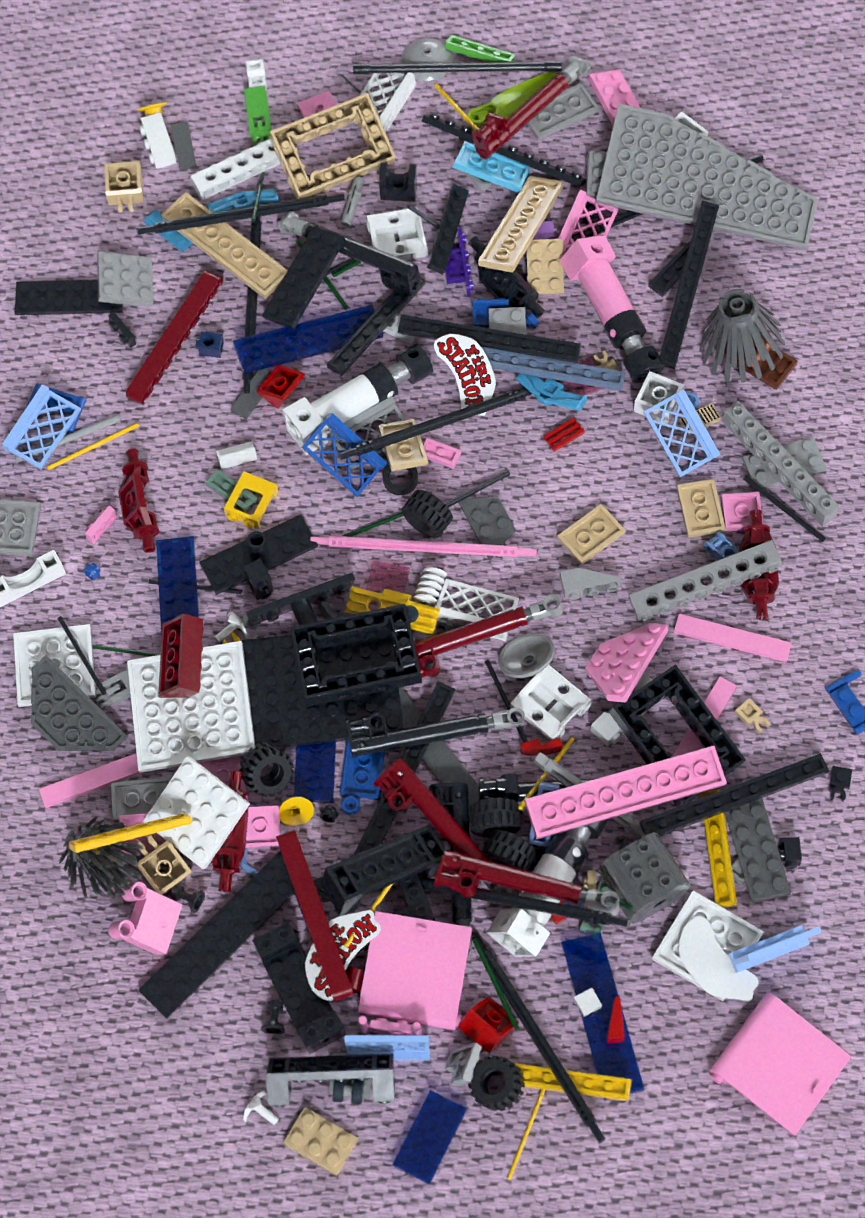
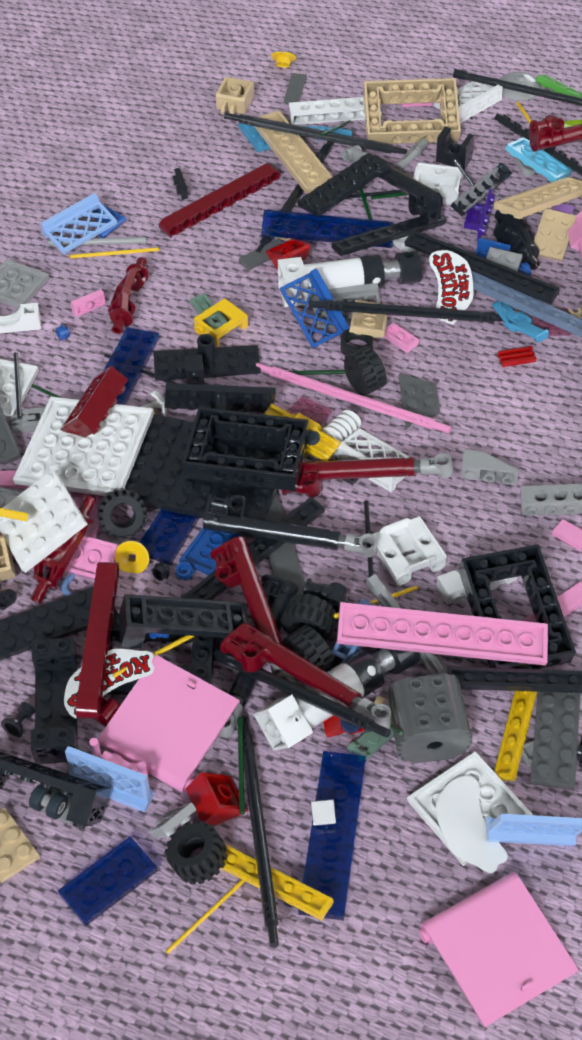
camera: 20 degrees right, 15 degrees down
(61, 298) = (152, 154): black plate -> none
(124, 279) = (201, 152): light grey plate -> none
(157, 140) = (276, 79): white brick -> none
(215, 349) = (246, 212): dark blue brick -> none
(236, 455) = (226, 290): white panel -> none
(256, 73) = (375, 62): white slope -> none
(257, 106) = (365, 73): bright green hinge -> none
(478, 488) = (420, 371): black axle -> none
(526, 655) = (403, 505): light grey dish -> none
(534, 747) = (392, 584): red slope -> none
(591, 534) = (507, 434): tan plate -> none
(616, 1028) = (340, 843): red slope -> none
(622, 660) = (487, 535): bright pink plate -> none

